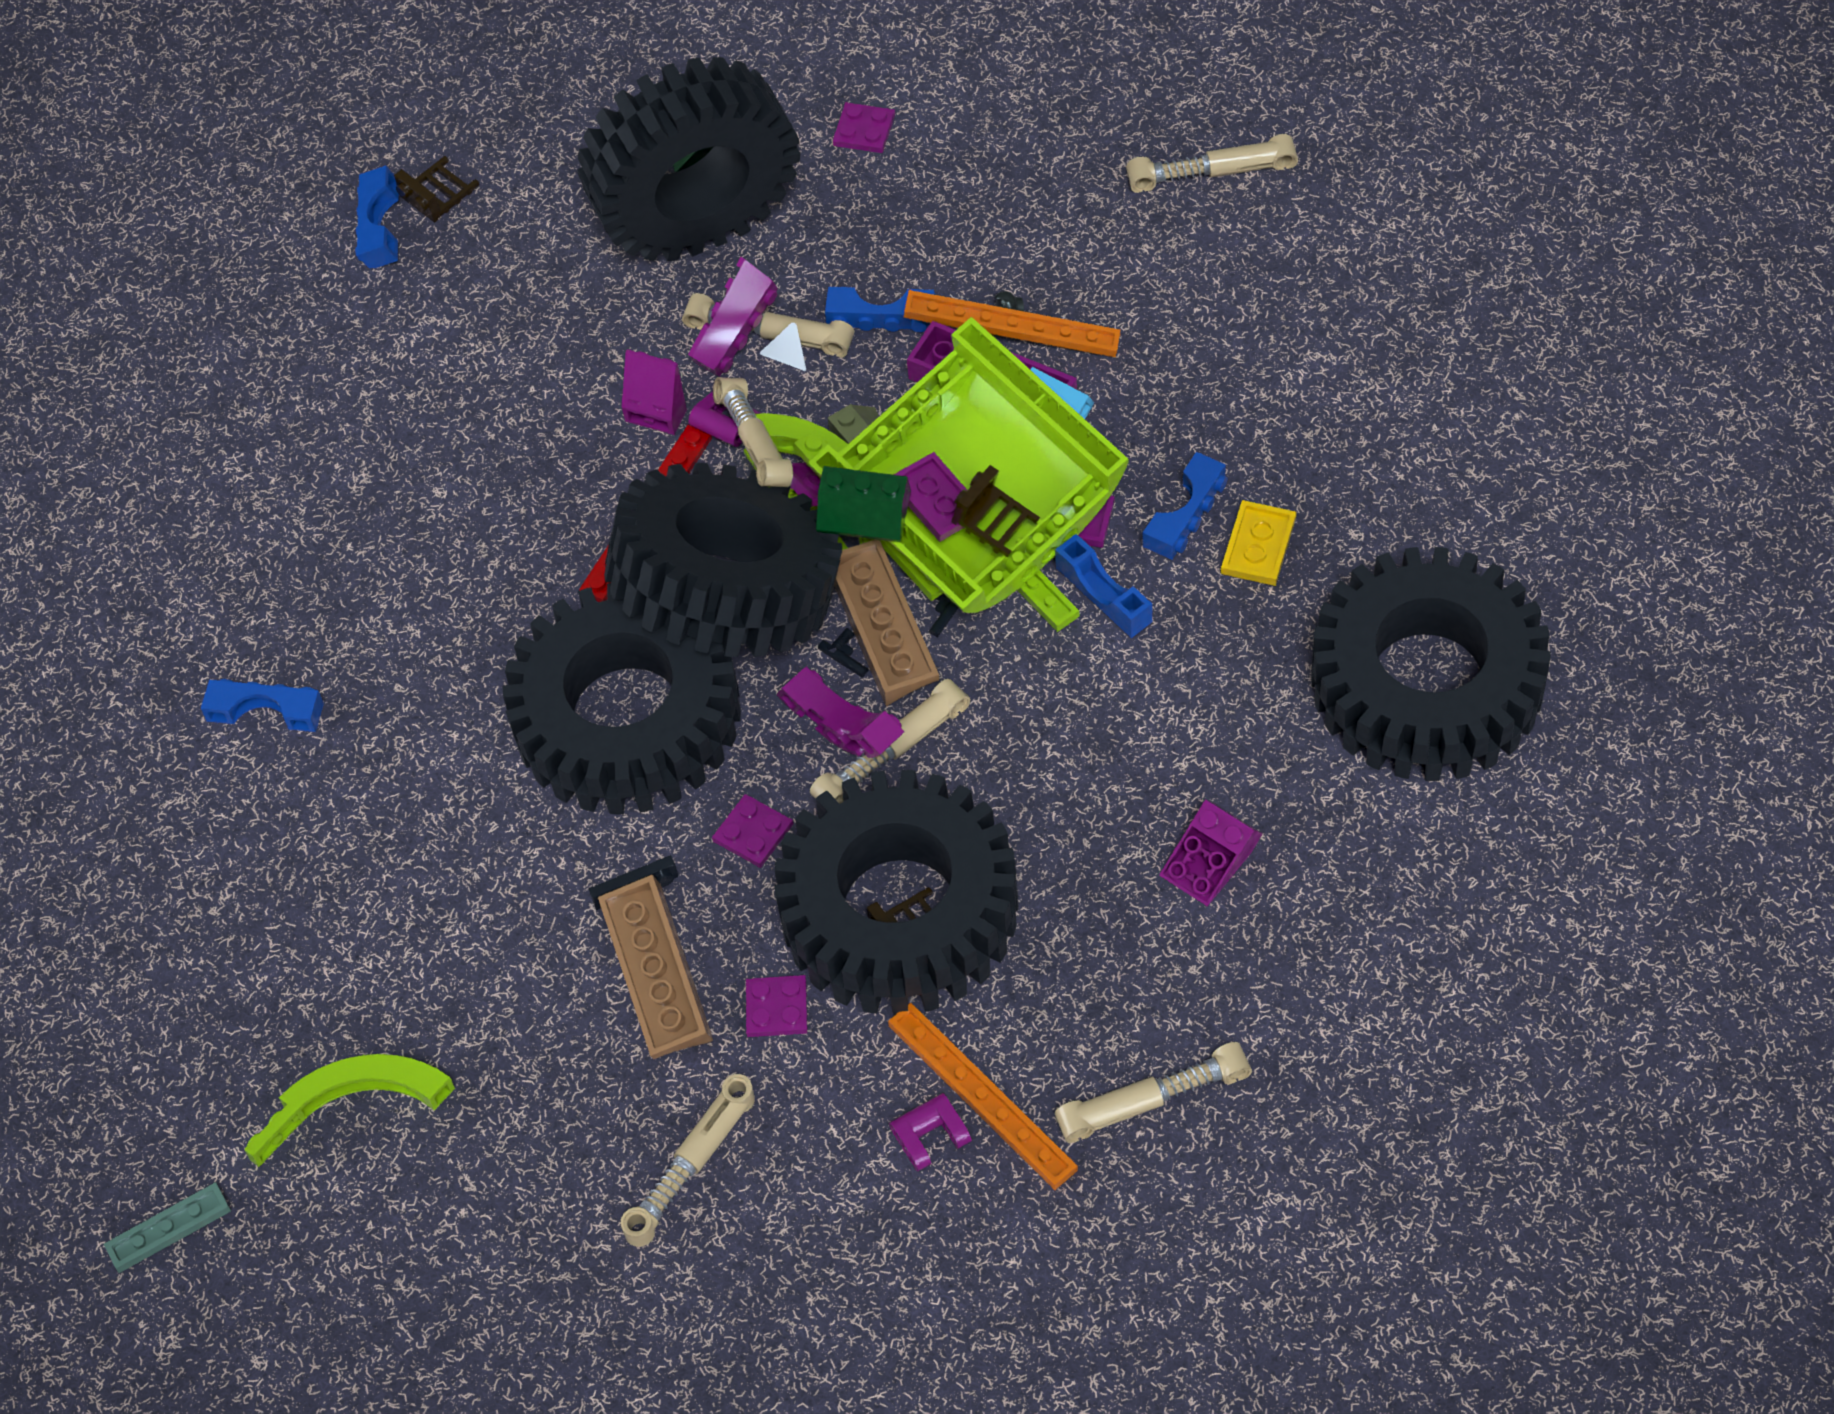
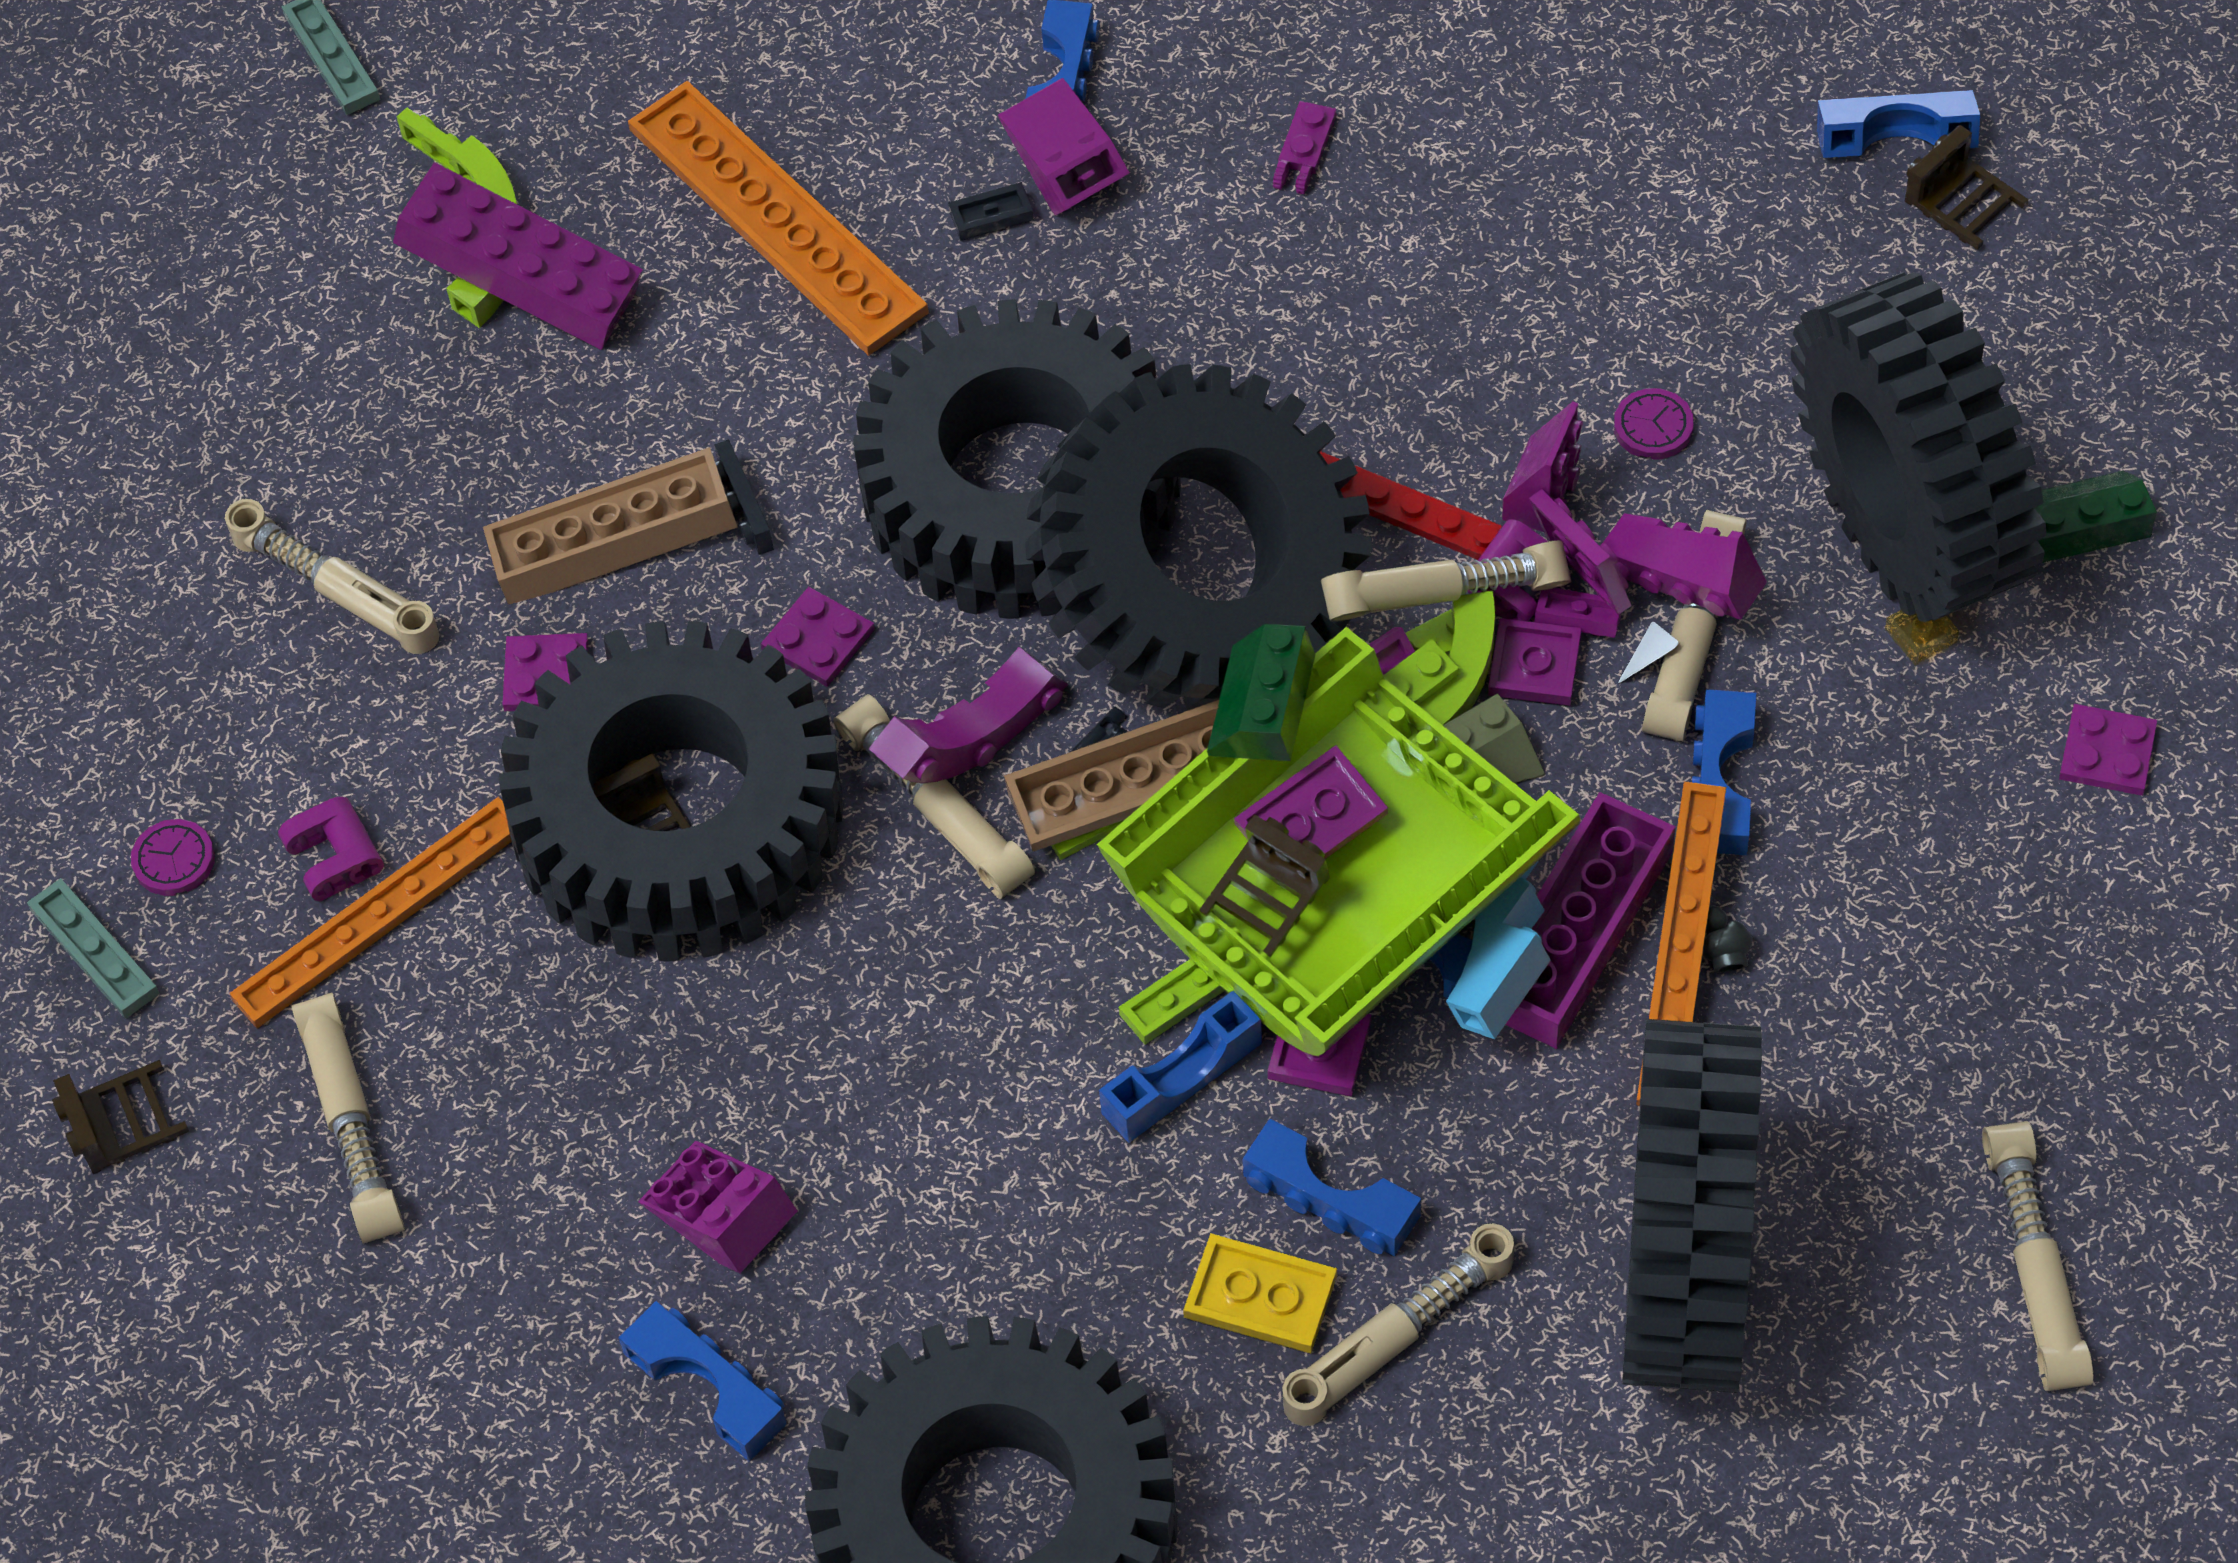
camera: 90 degrees right, 0 degrees up
(347, 686) = (1062, 146): none -> magenta slope
(348, 554) = (1304, 144): none -> magenta hinge
(372, 886) = (778, 218): none -> orange plate
(386, 743) = (991, 211): none -> black plate
(410, 1042) = (517, 255): none -> magenta brick
(604, 352) = (1653, 423): none -> magenta tile
(732, 363) = (1587, 558): none -> magenta plate
(758, 379) = (1577, 610): none -> magenta plate
(781, 216) = (1918, 638): none -> clear yellow piece
(794, 401) = (1534, 661): none -> magenta plate
(933, 1247) = (172, 857): none -> magenta tile
(1015, 1291) = (93, 948): none -> sand green plate
(1166, 1269) = (90, 1124): none -> dark brown plate
(1244, 224) = (1693, 1205): none -> black tyre
(1280, 470) = (1394, 1328): none -> tan piece
(1365, 821) = (665, 1346): none -> blue arch

